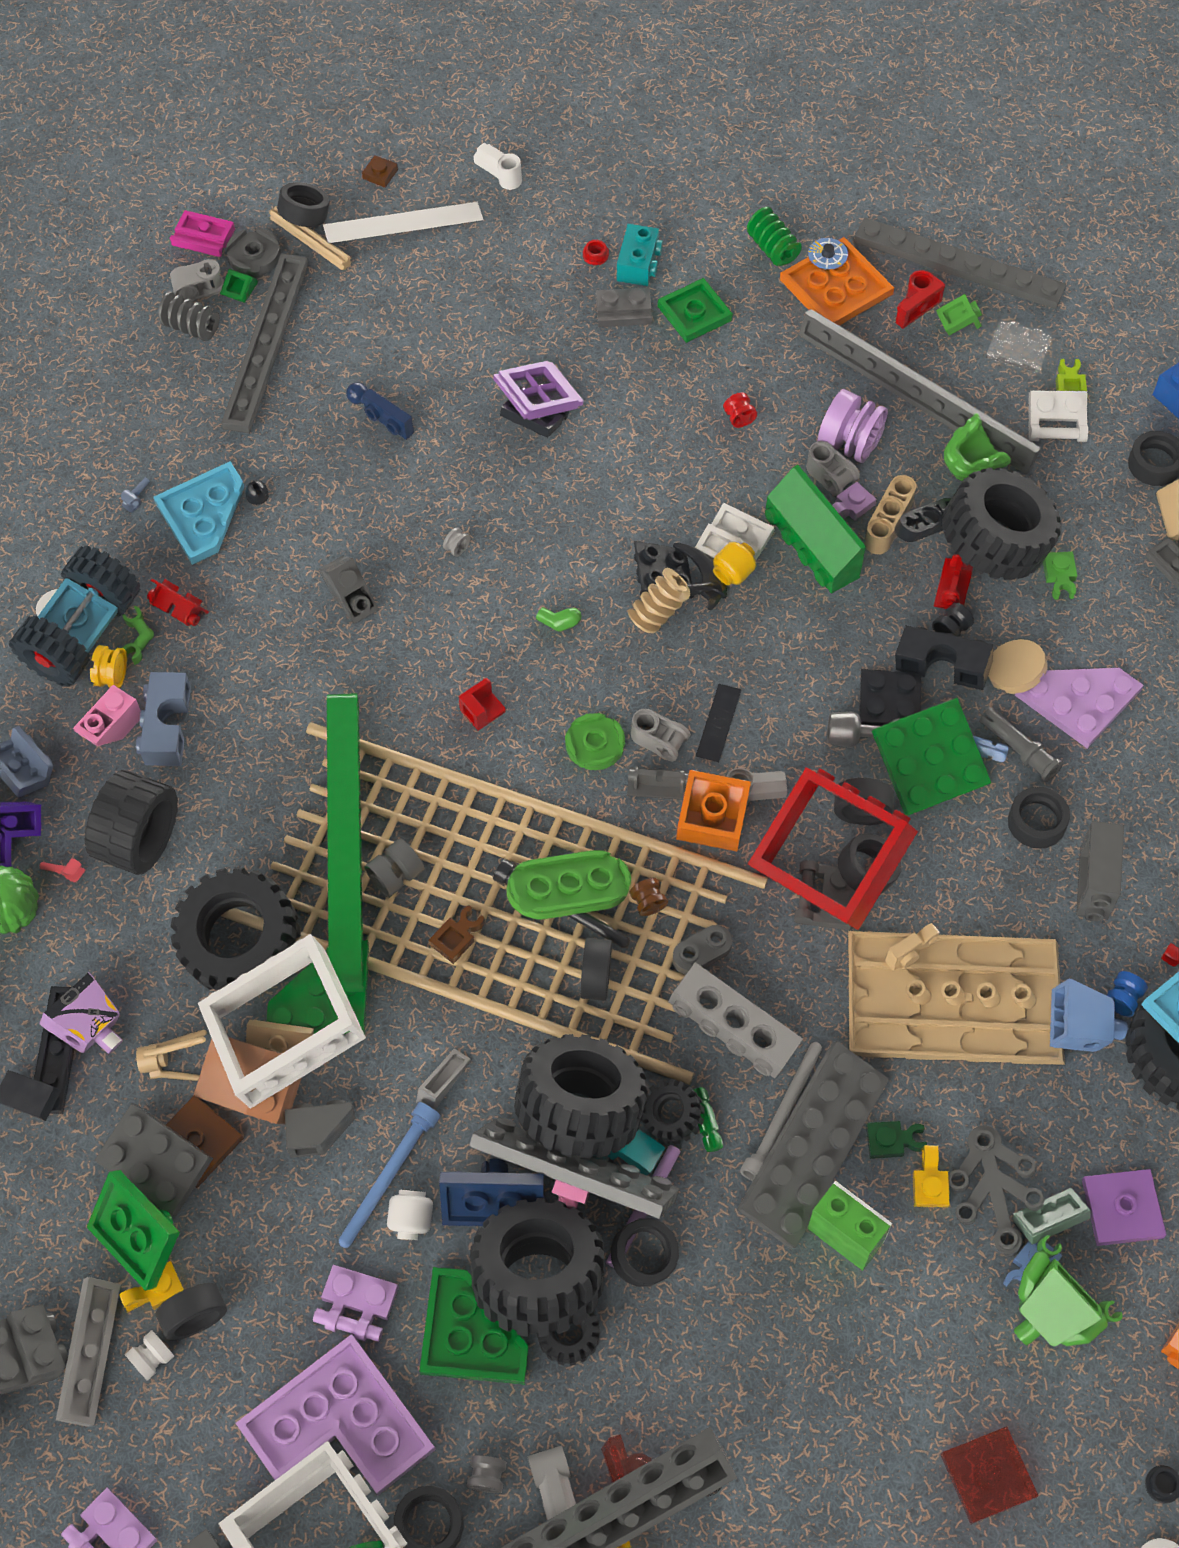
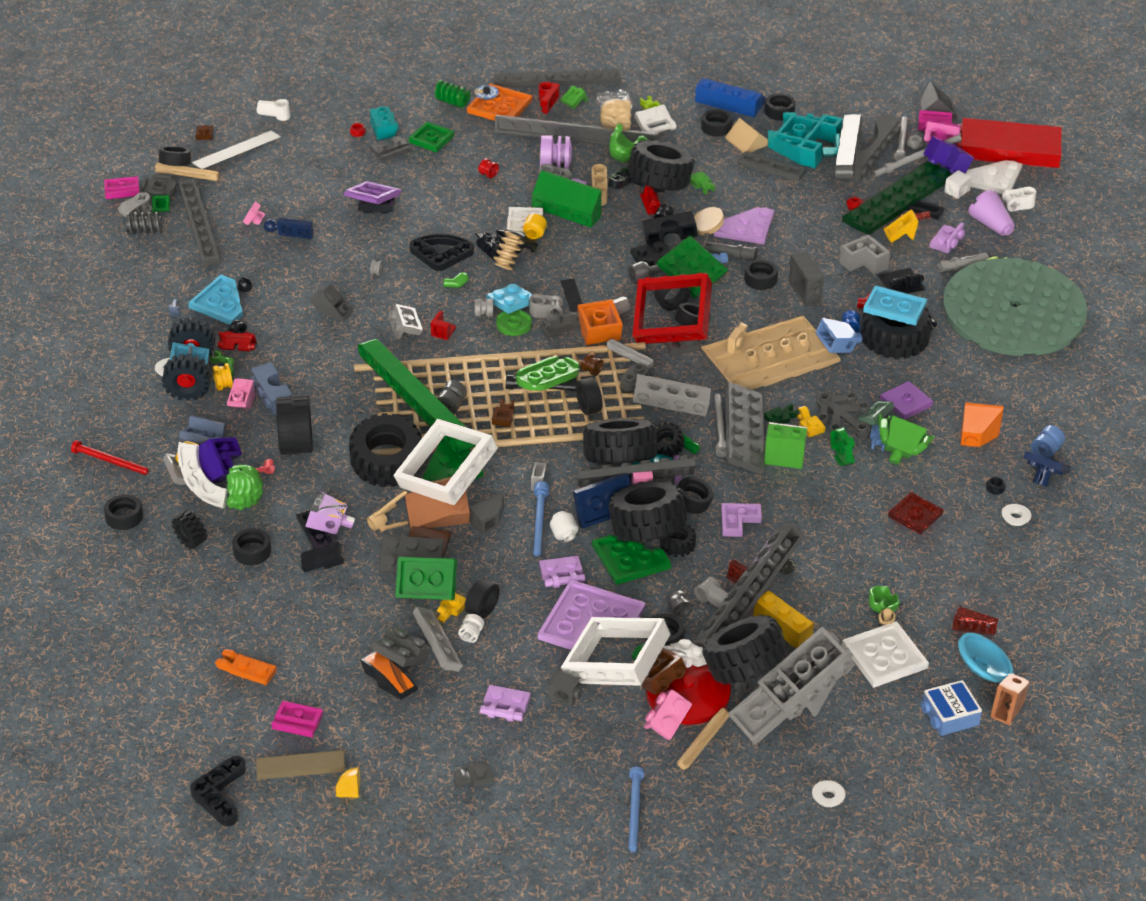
camera: 30 degrees left, 20 degrees down
(191, 577) = (238, 327): none -> black bush
(347, 359) = (254, 215): none -> bright pink tile
(433, 669) = (404, 320): none -> light grey bracket
(559, 559) = (440, 261): none -> black beam
(562, 694) = (483, 307): none -> light grey wheel
(615, 692) = (510, 298): none -> medium azure plate
(689, 1324) = (735, 514): none -> lavender plate
(725, 897) = (629, 353): none -> light grey axle
(941, 1279) = (843, 446): none -> green plate
(1000, 380) = (616, 112): none -> tan hair

